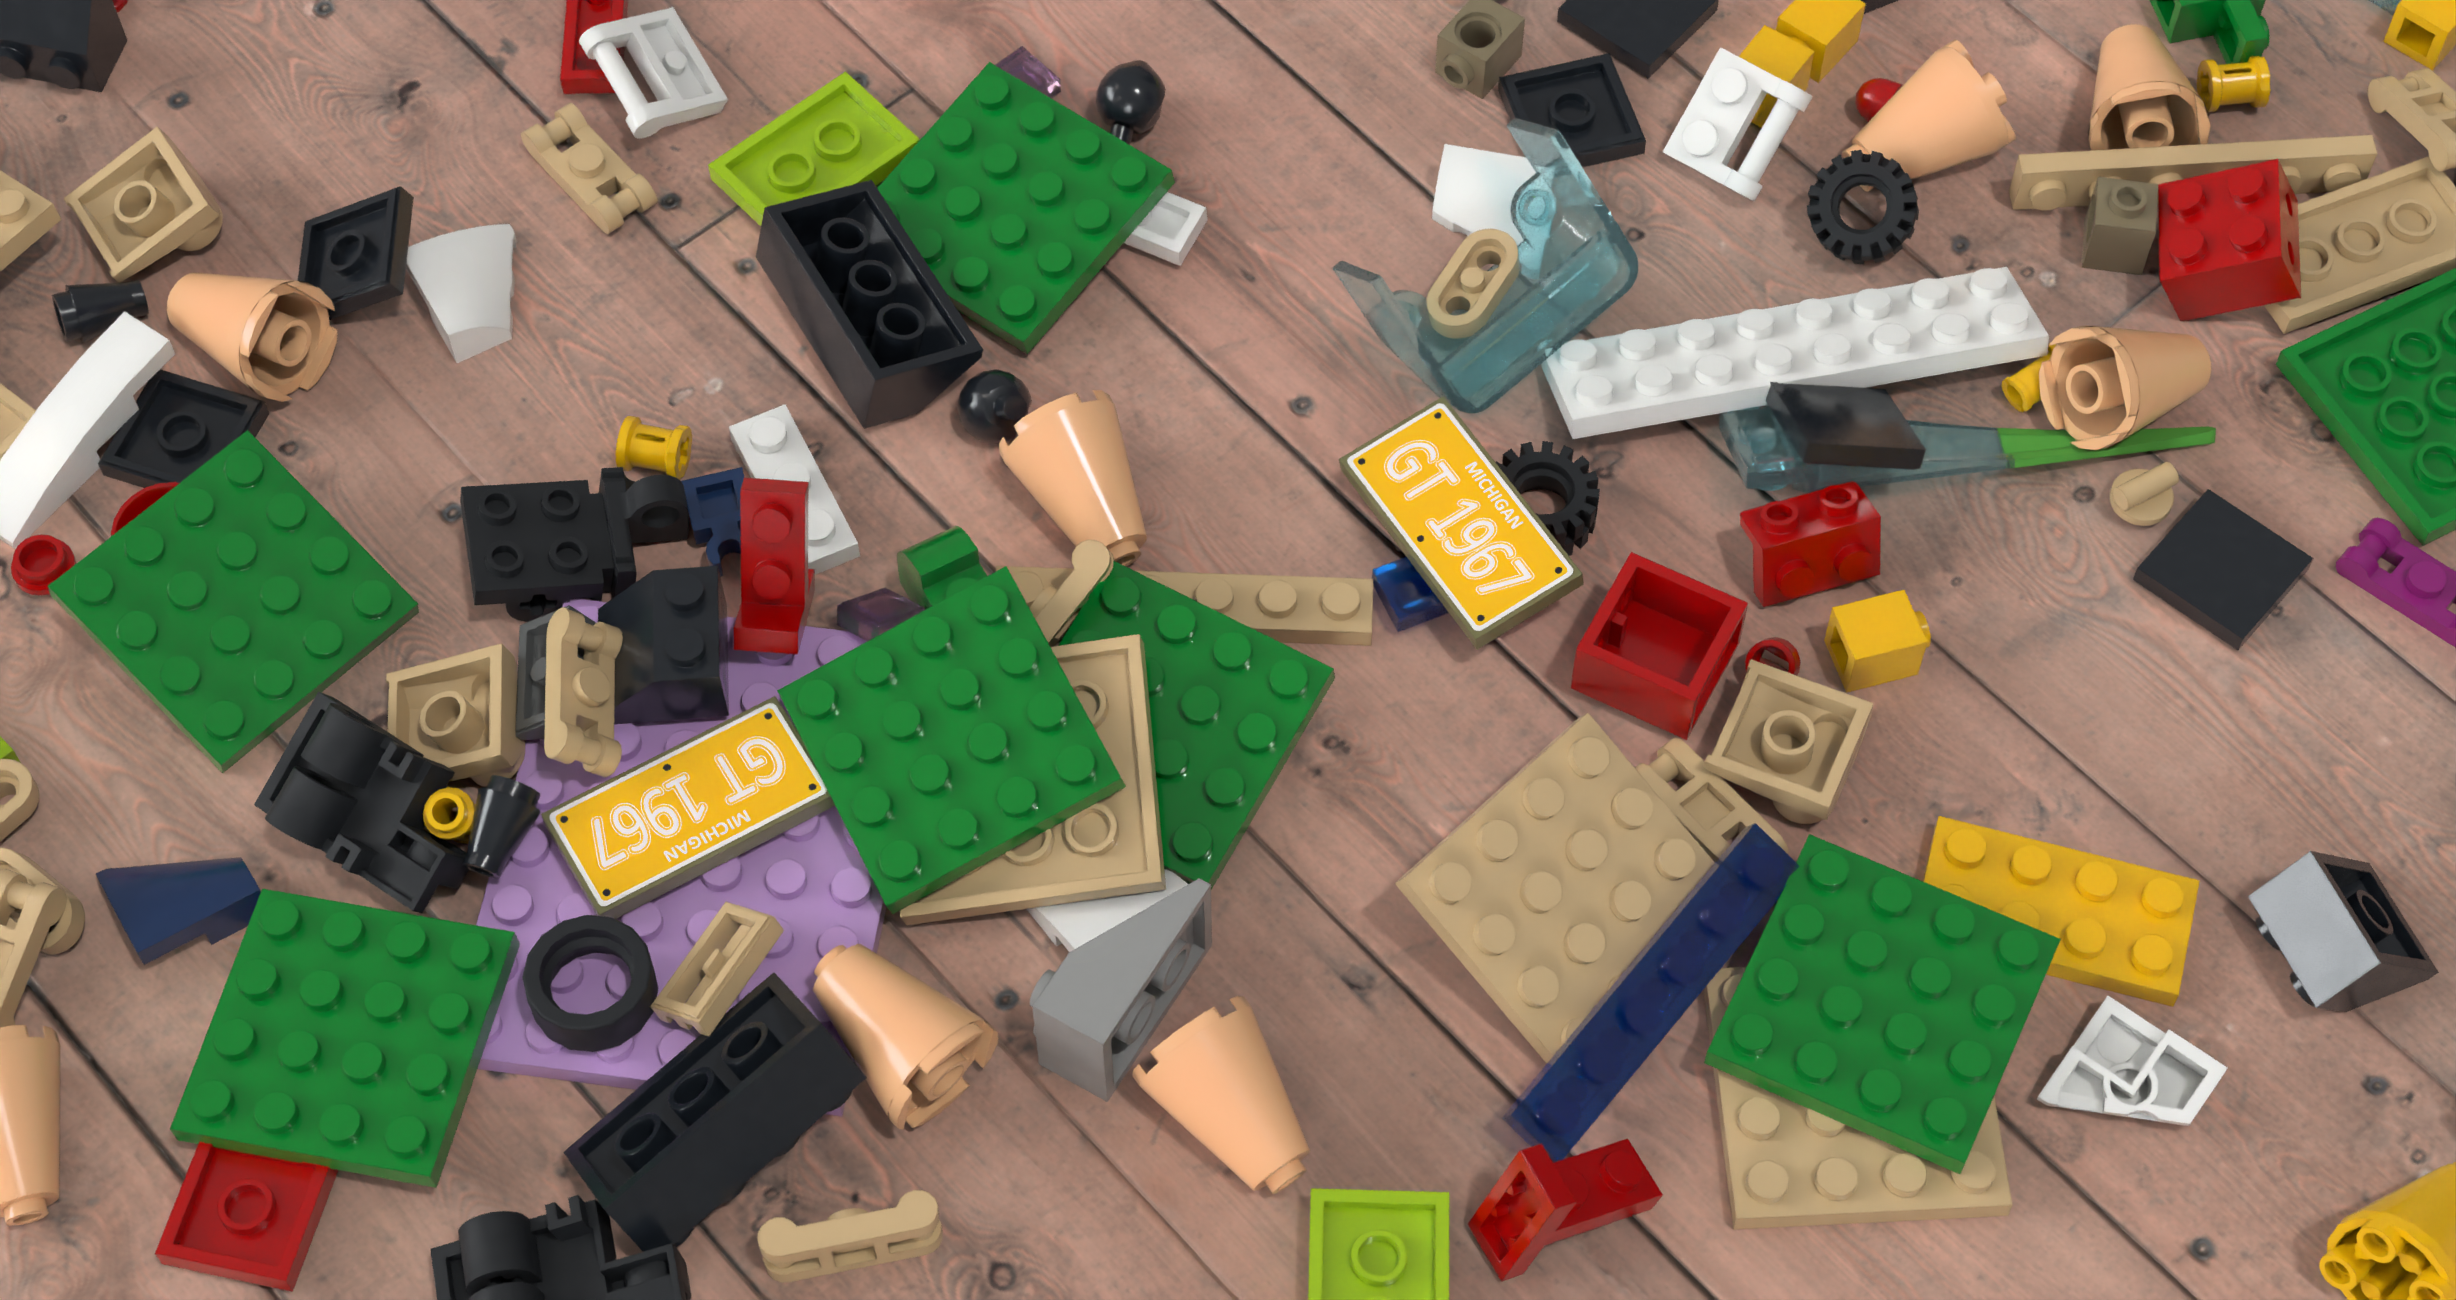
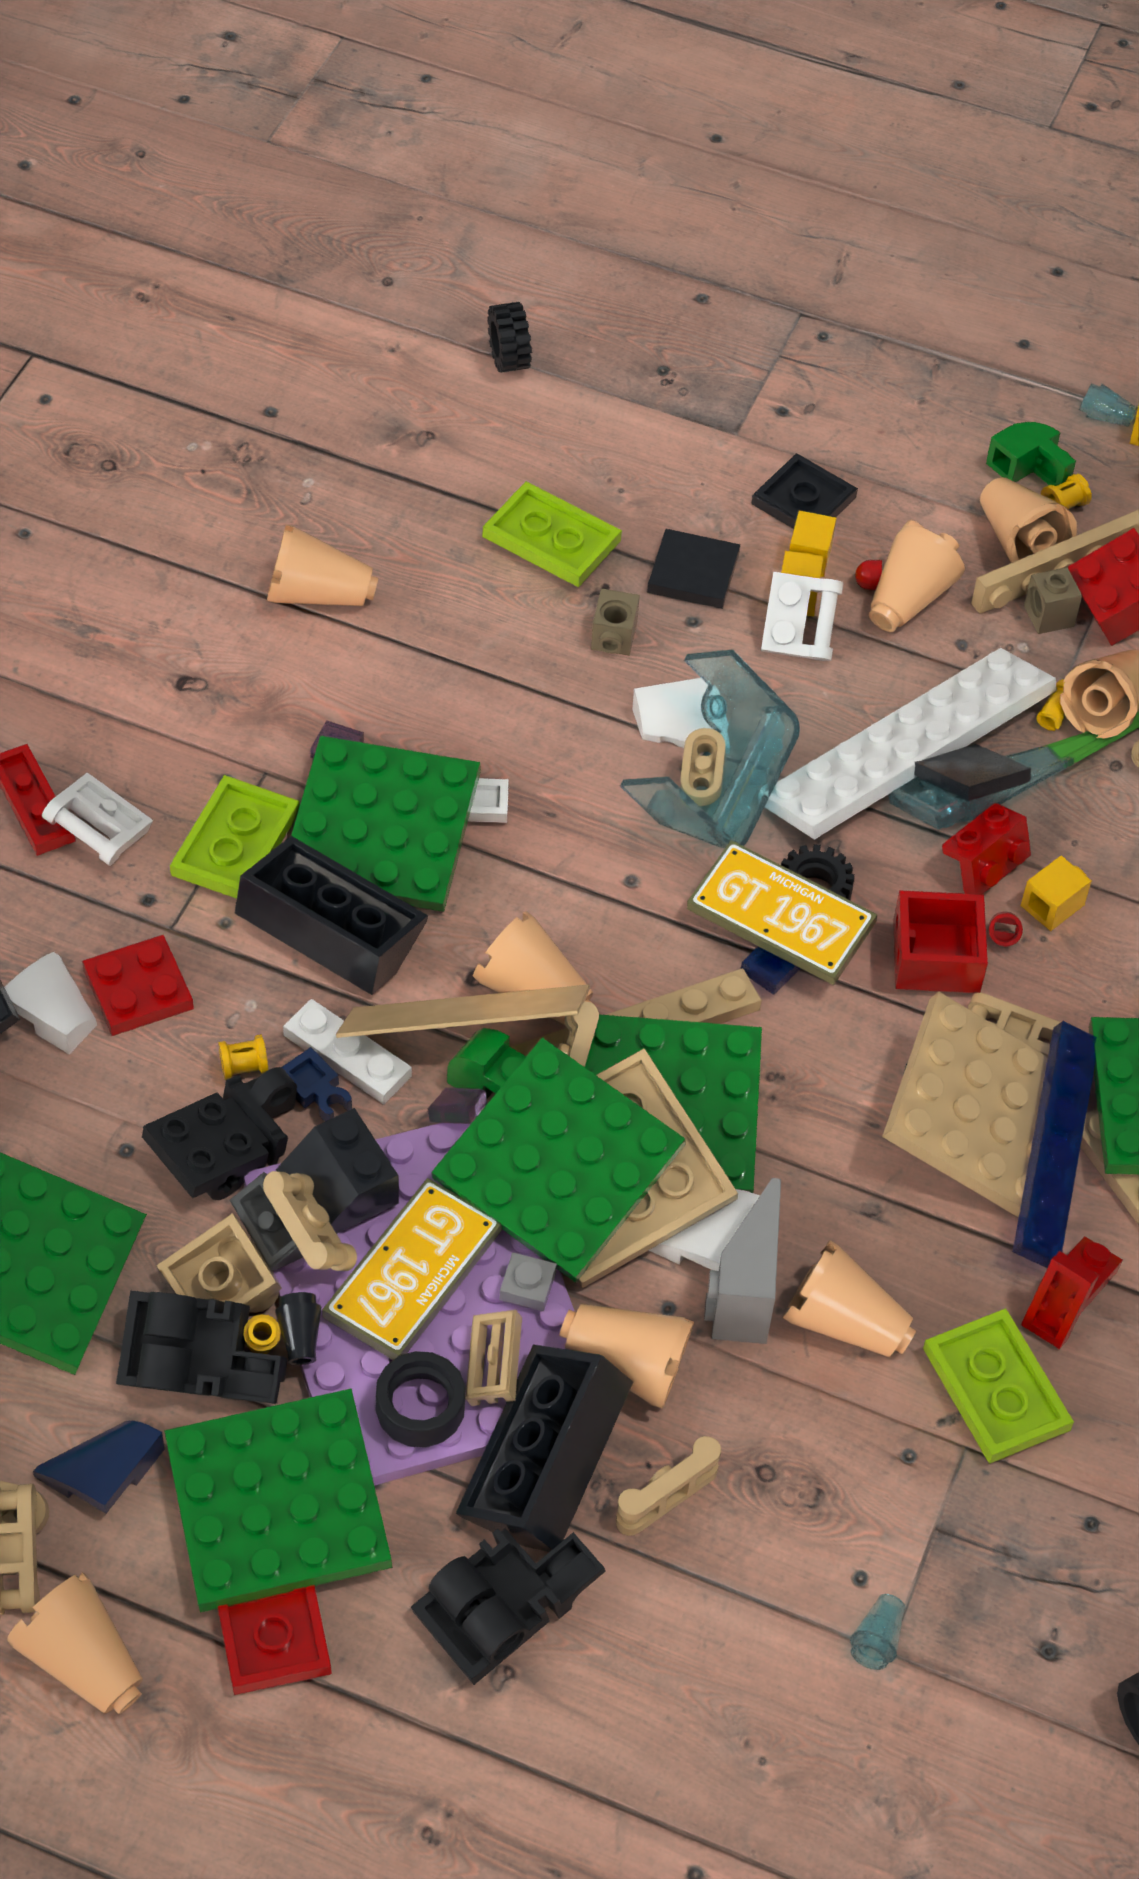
camera: 30 degrees left, 5 degrees down
(586, 305) = (137, 985): none -> red plate
(588, 169) = (85, 898): tan plate -> none
(774, 566) = (384, 1094): red bracket -> none
(825, 886) = (528, 1281): none -> light grey plate
(949, 494) = (464, 1011): none -> tan window
(993, 405) = (449, 949): black piece -> none
(1130, 99) = (419, 728): black piece -> none
(1580, 101) = (686, 633): black tile -> none
(1791, 742) = (1045, 969): tan slope -> none
(1853, 172) = (918, 621): black tyre -> none

